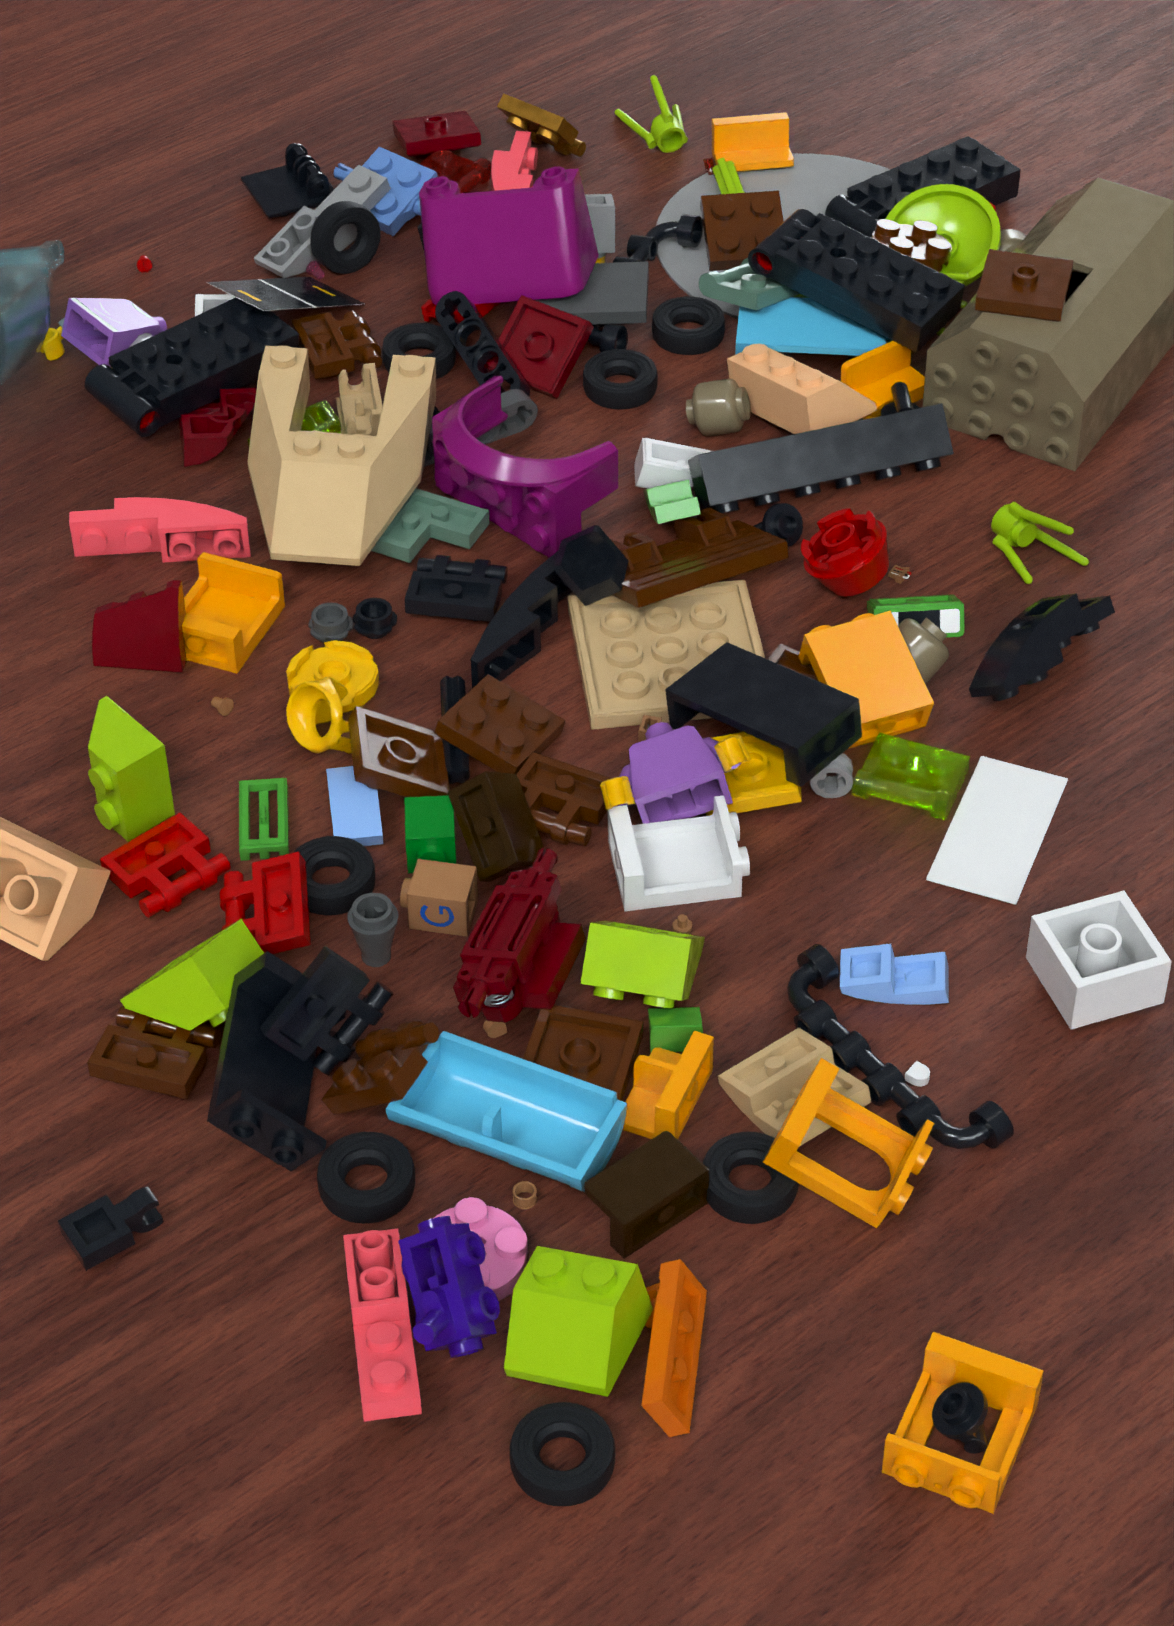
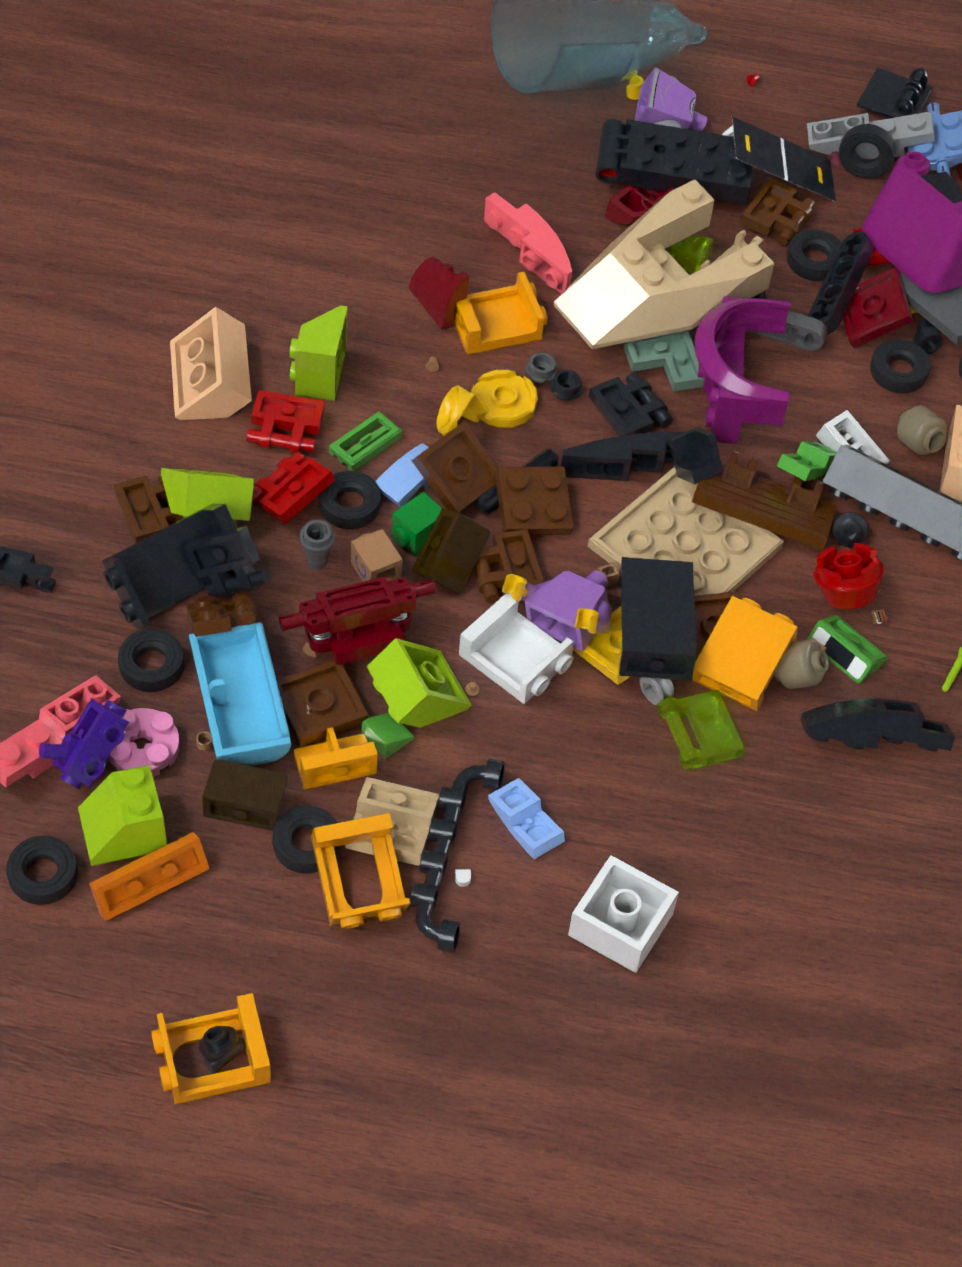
camera: 45 degrees right, 10 degrees up
(997, 830) = (705, 801): white sticker -> none

